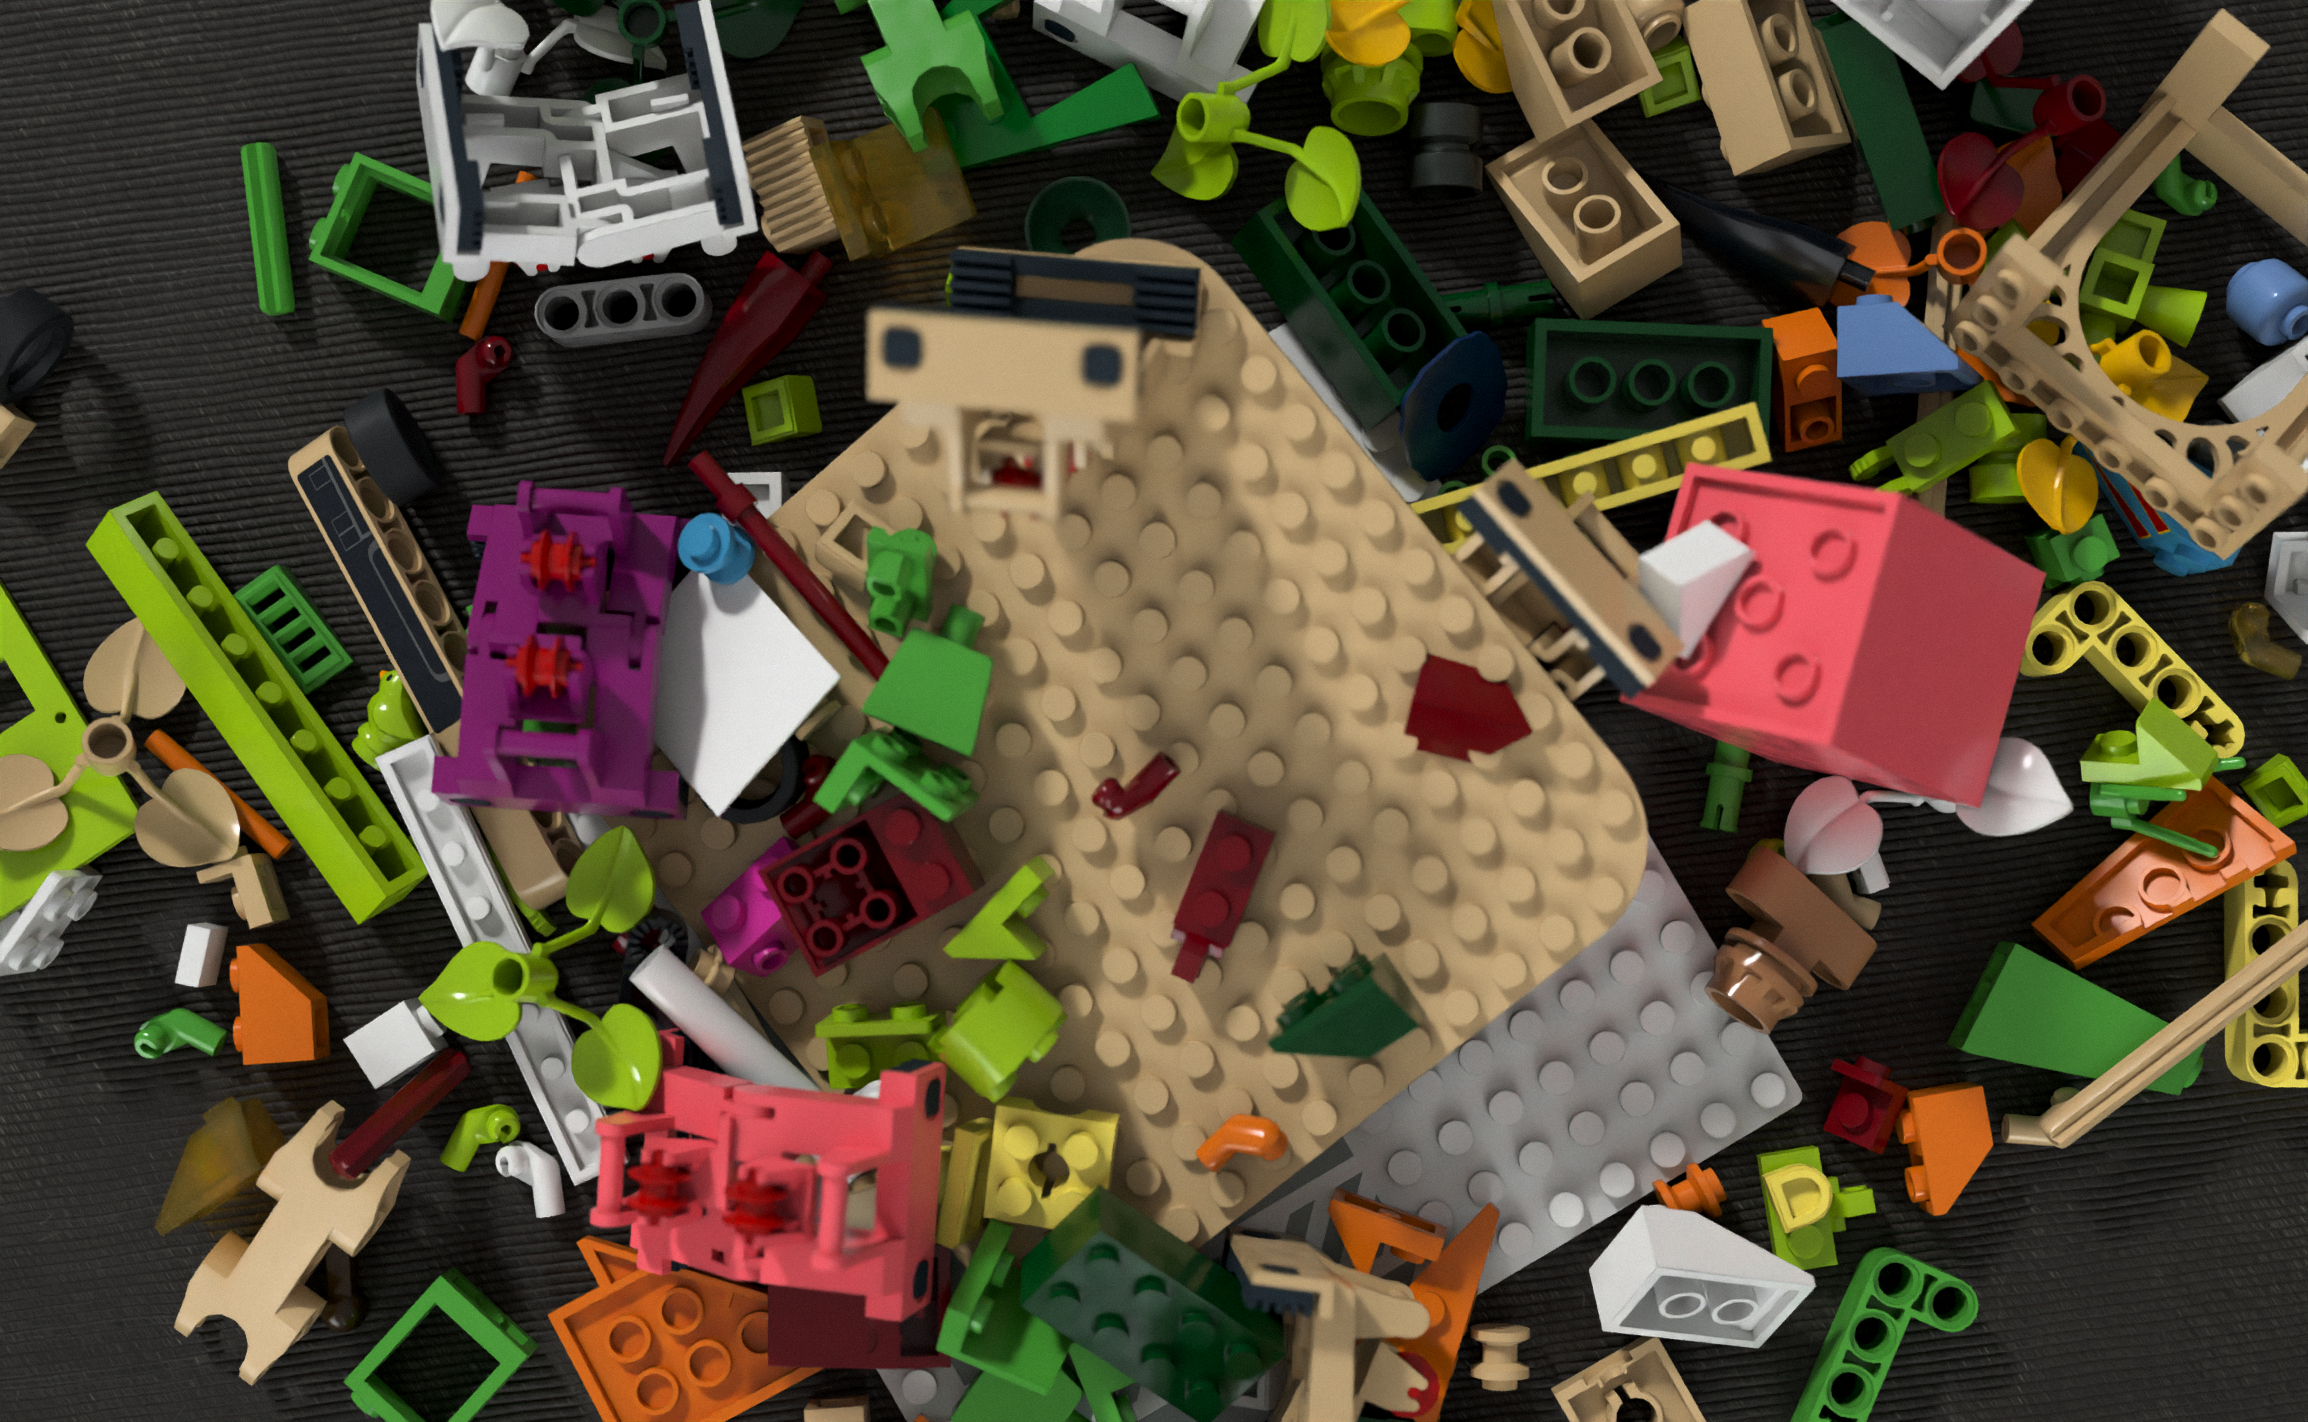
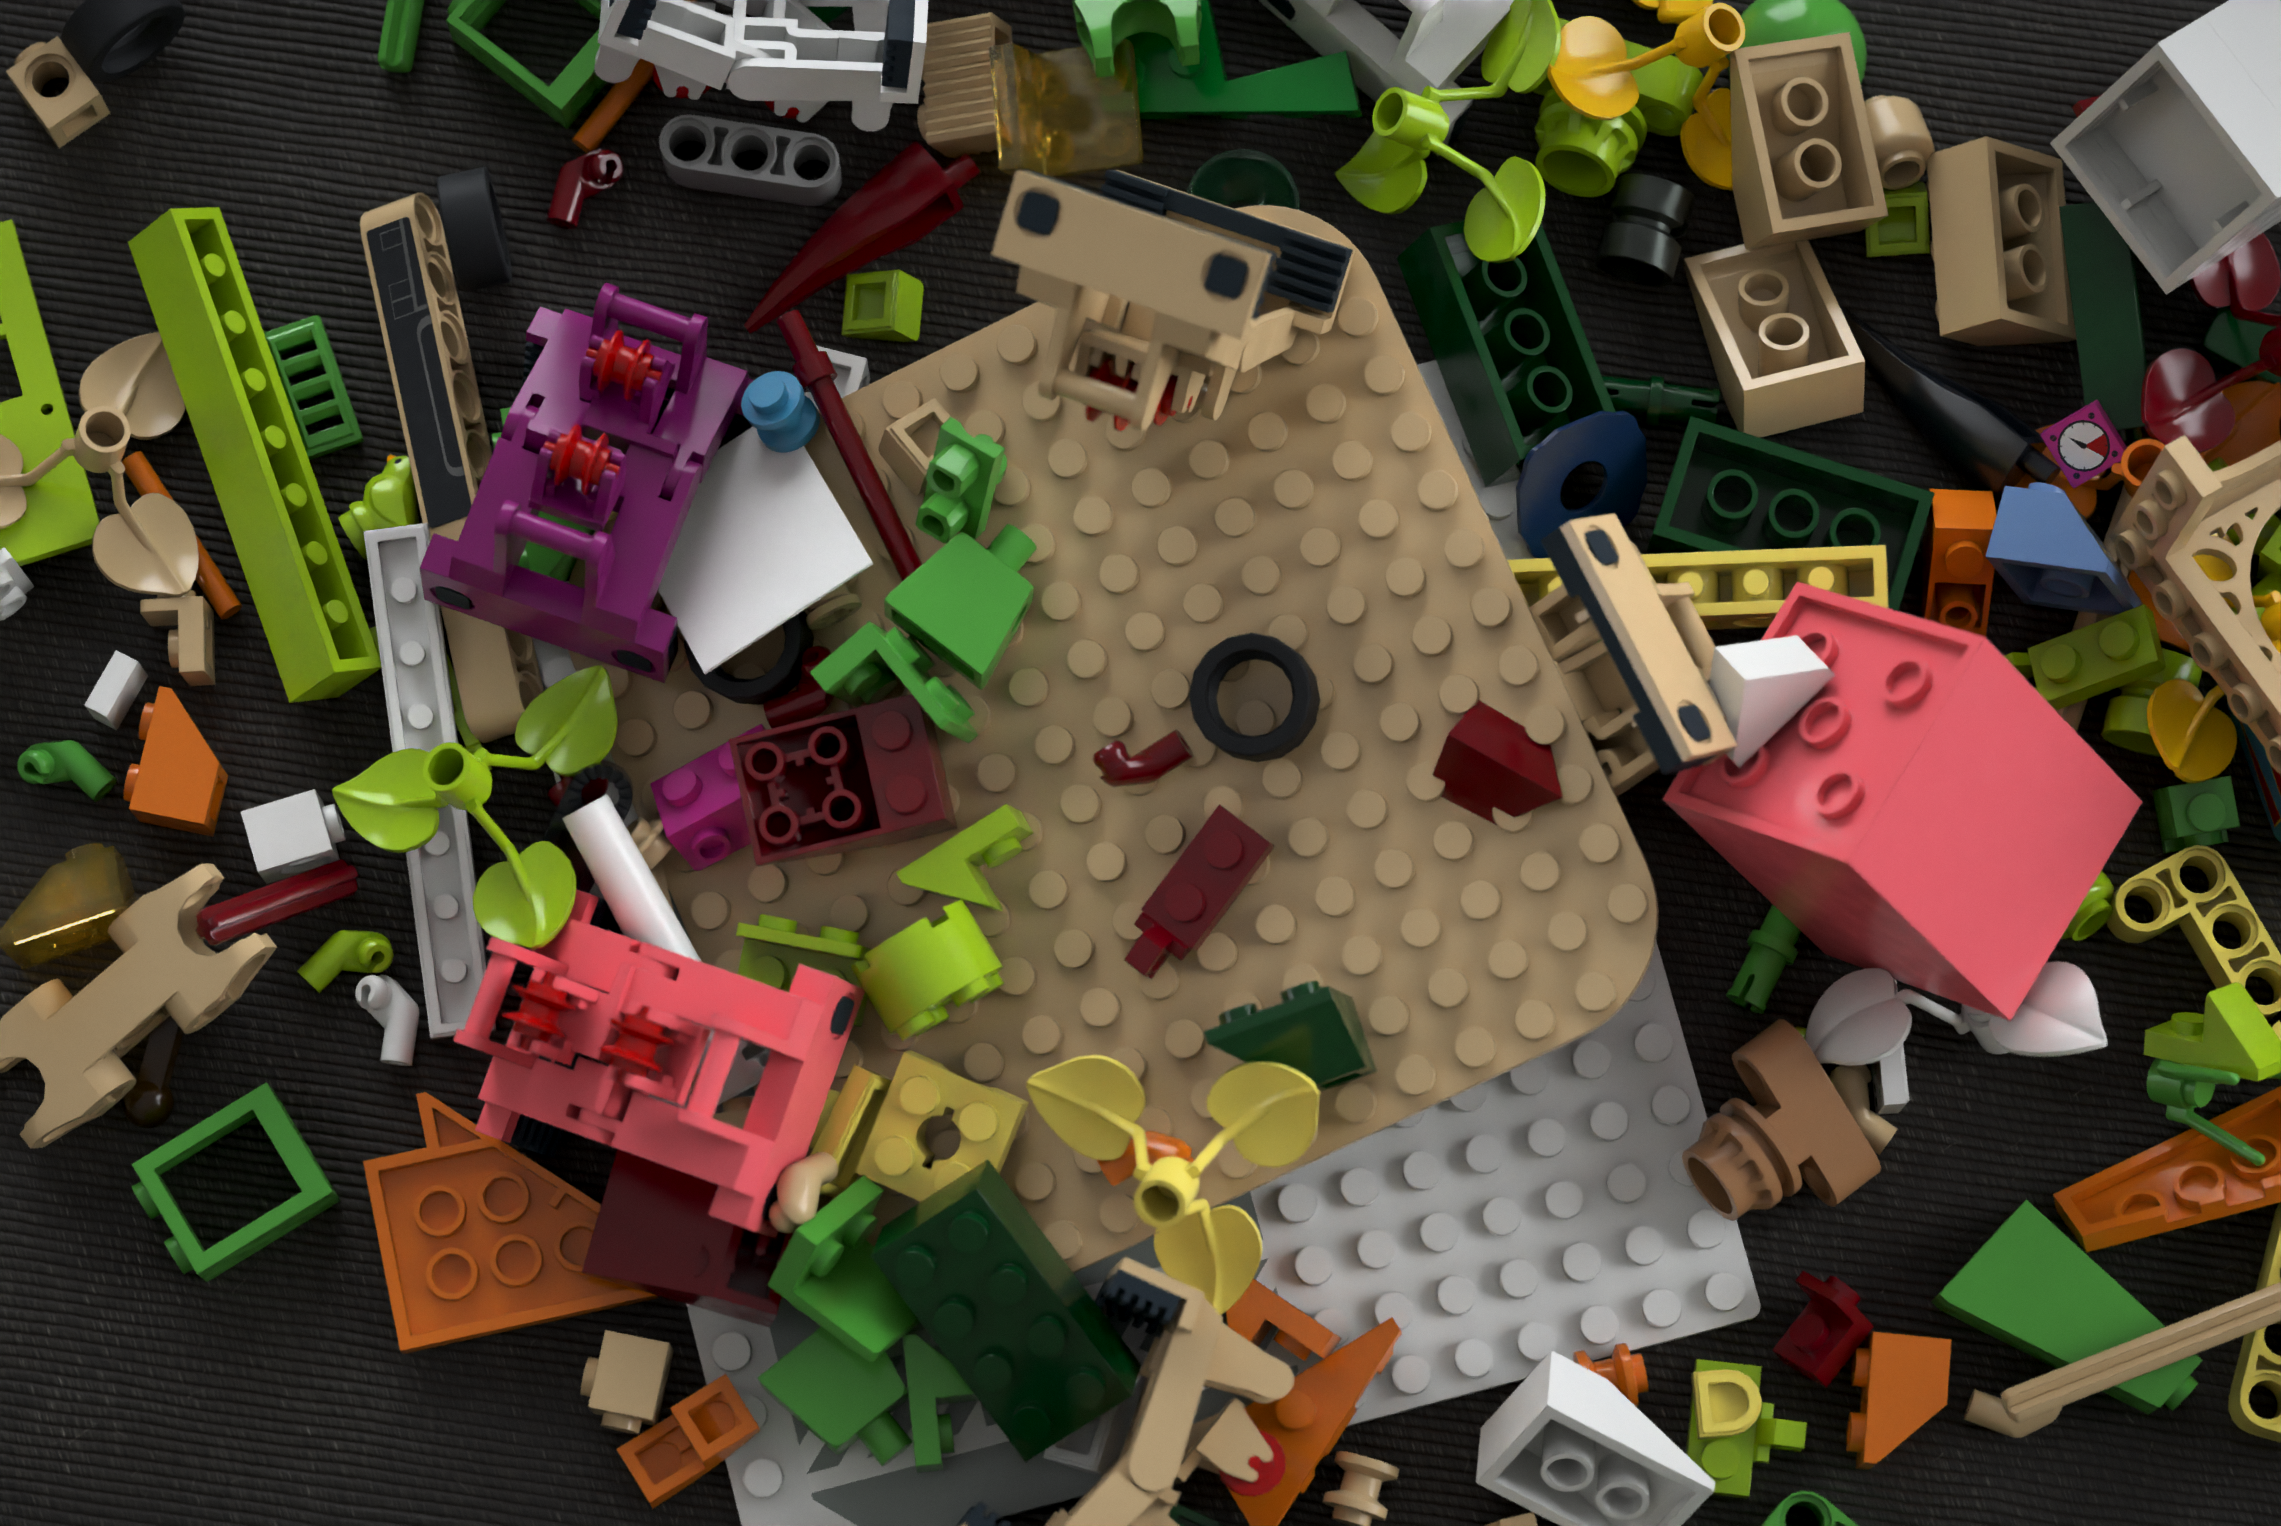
camera: 15 degrees right, 10 degrees down
(940, 1261) = (800, 1190): none -> tan arm
(1189, 740) = (1213, 670): none -> black tyre
(1318, 1202) = (1260, 1105): none -> light yellow plant
(1893, 243) = (2084, 443): none -> tile

